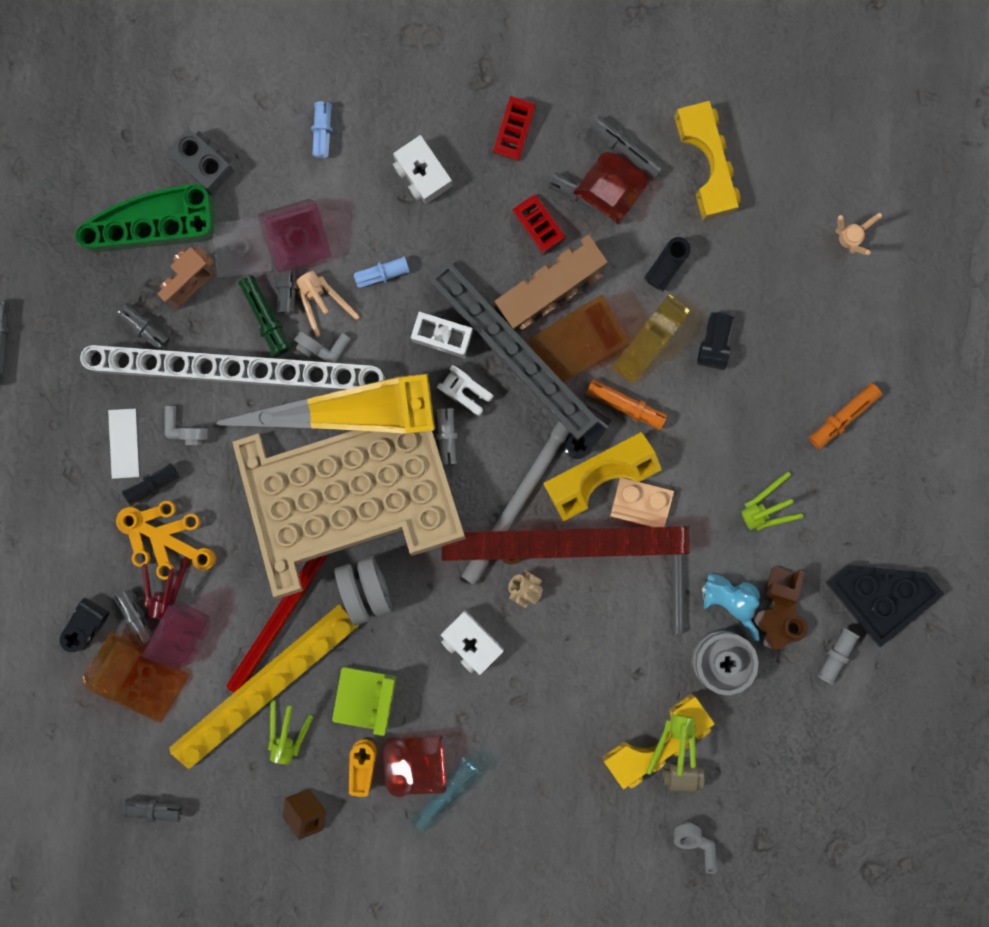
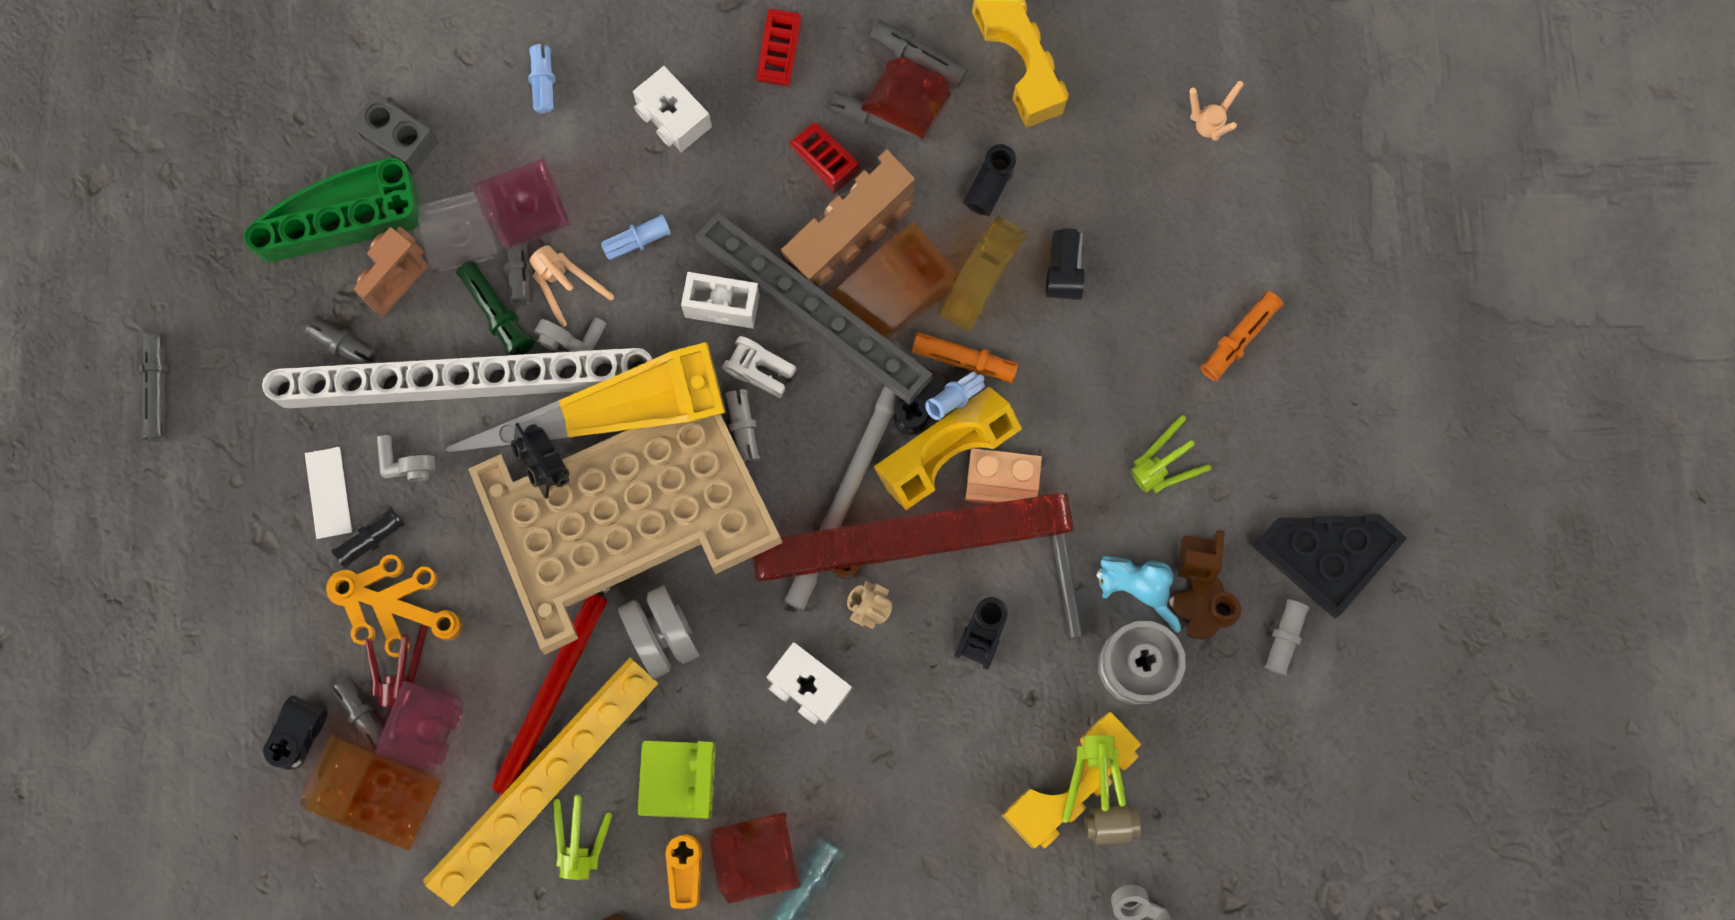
camera: 10 degrees left, 10 degrees down
(289, 454) = (541, 470): none -> black hinge
(607, 623) = (982, 634): none -> black piece
(614, 436) = (955, 395): none -> light blue axle

